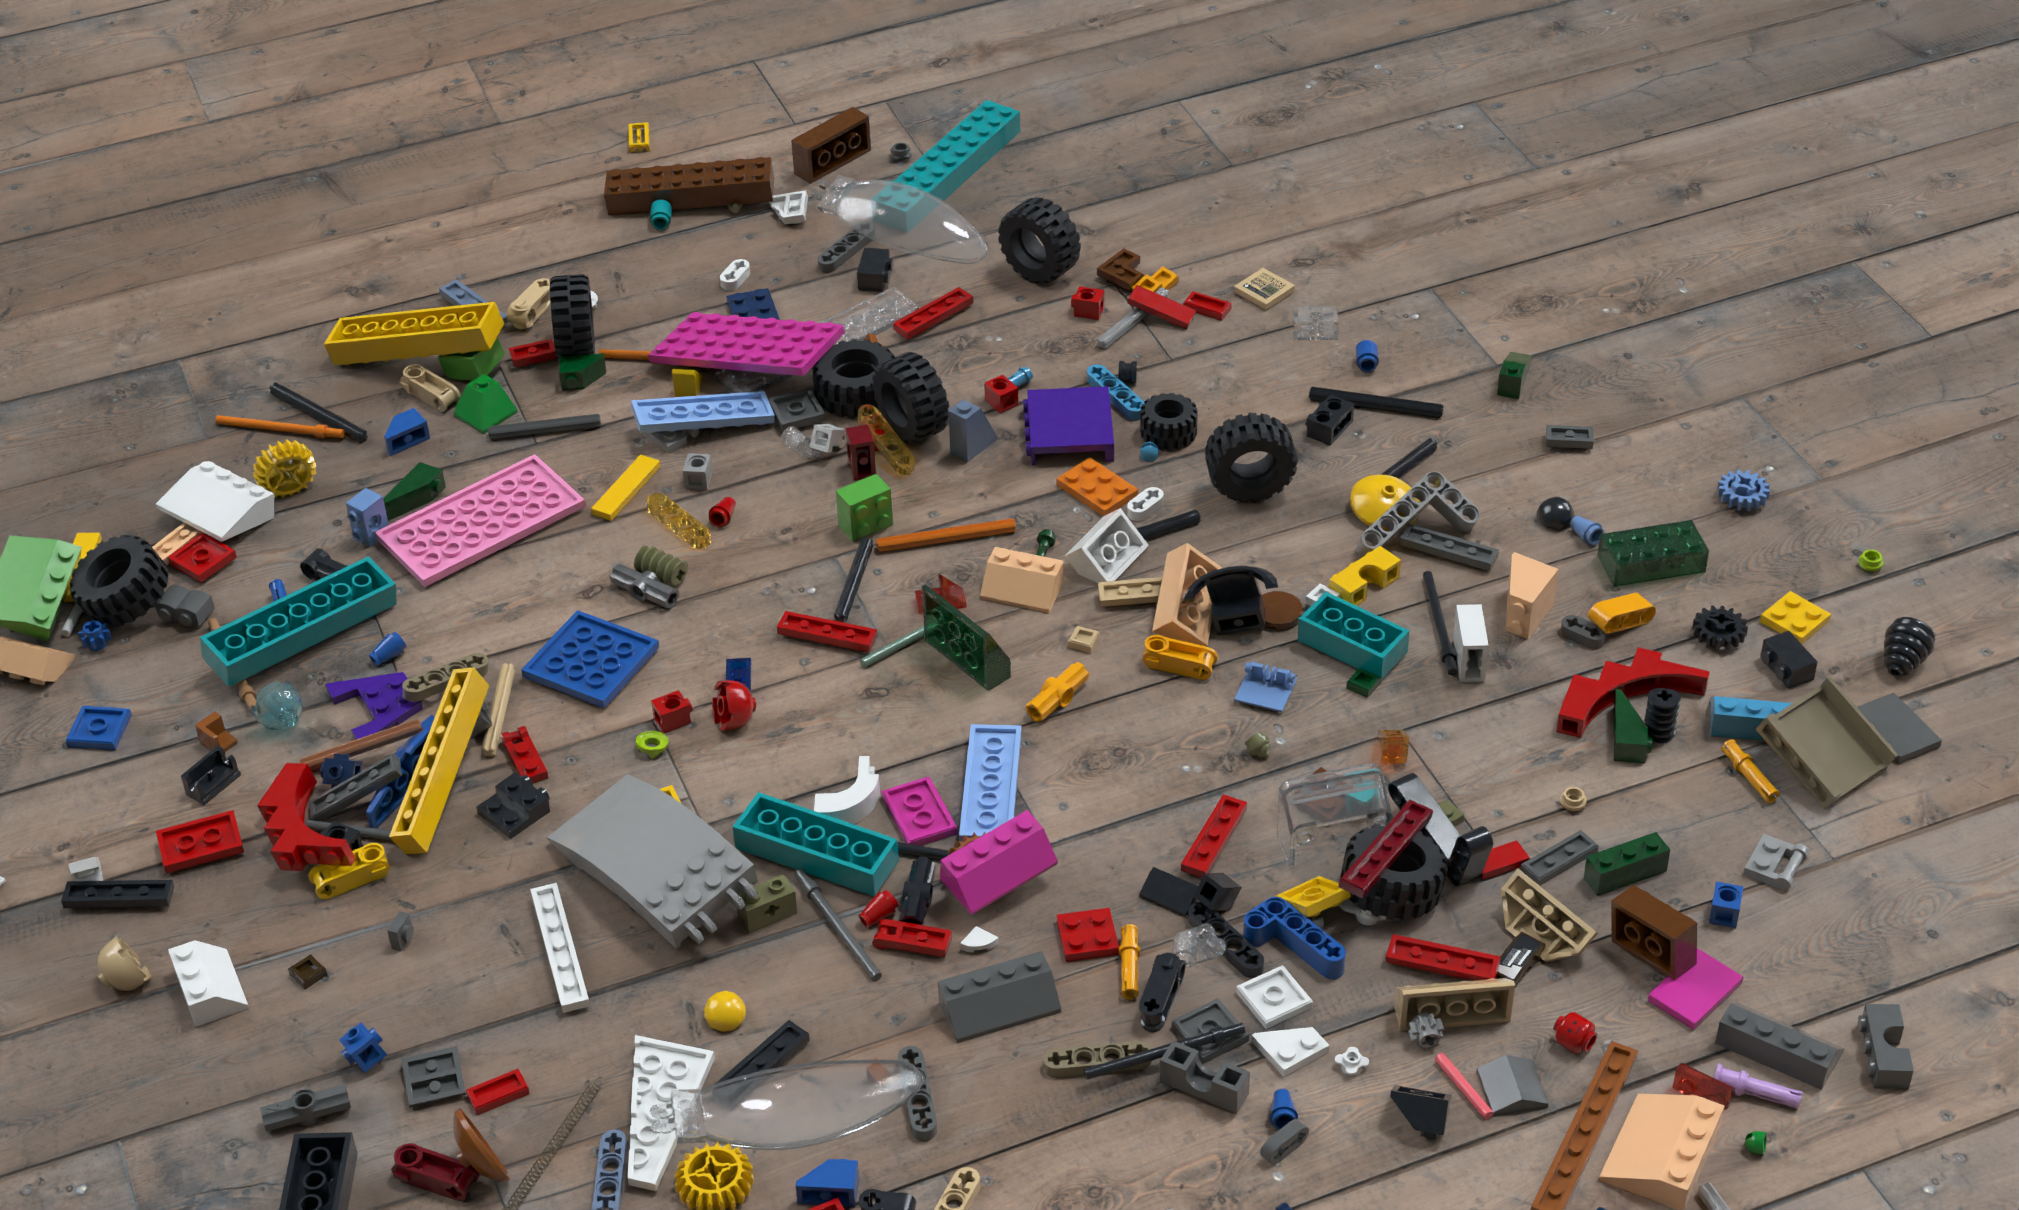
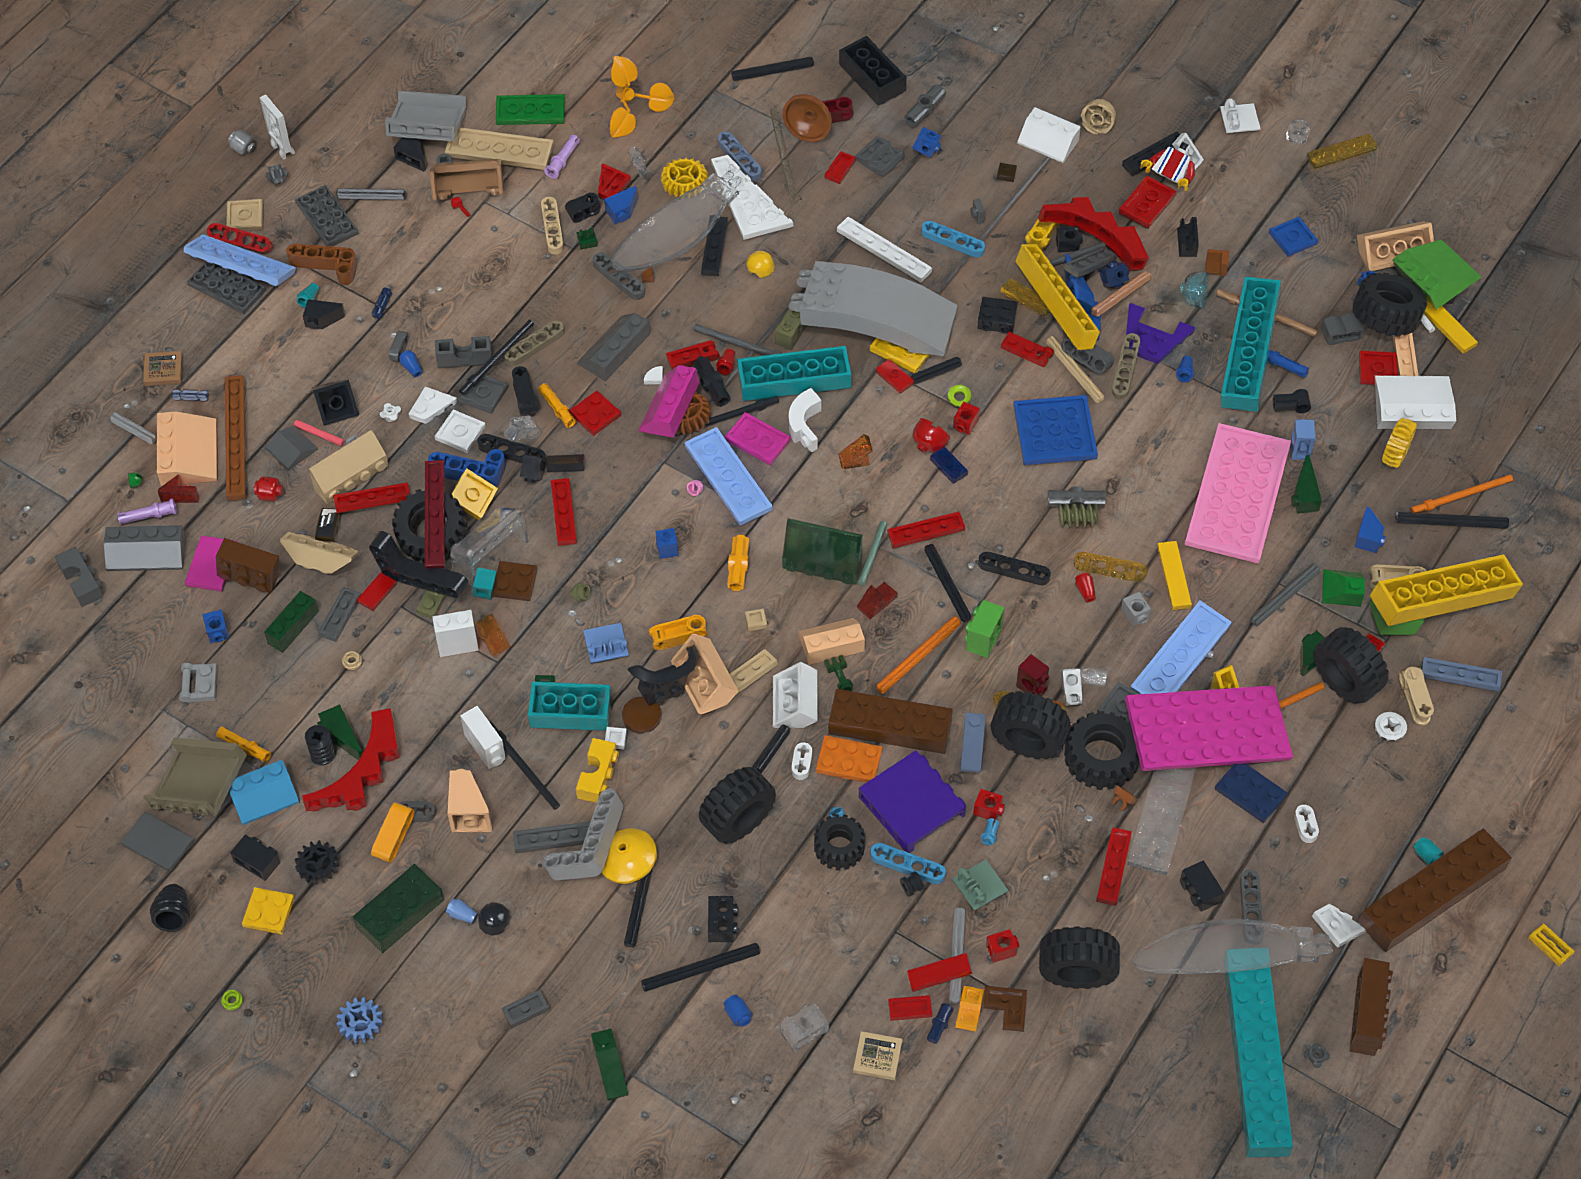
camera: 145 degrees right, 15 degrees up
(124, 850) = (1173, 165): none -> torso
(463, 806) = (1025, 296): none -> clear yellow plate
(468, 919) = (952, 240): none -> dark azure beam
(655, 780) = (936, 370): none -> black axle
(700, 798) = (894, 376): none -> red plate
(777, 559) = (1015, 565): none -> black beam
(829, 733) = (856, 453): none -> clear orange slope
(916, 1170) = (586, 239): none -> dark green tile
(1031, 488) = (890, 721): none -> reddish brown brick
(1037, 791) = (692, 486): none -> bright pink hinge
(1065, 351) = (979, 884): none -> sand green hinge
(1121, 742) = (666, 543): none -> blue brick
(1191, 282) = (940, 1022): none -> dark blue axle
(1437, 745) = (455, 633): none -> white brick

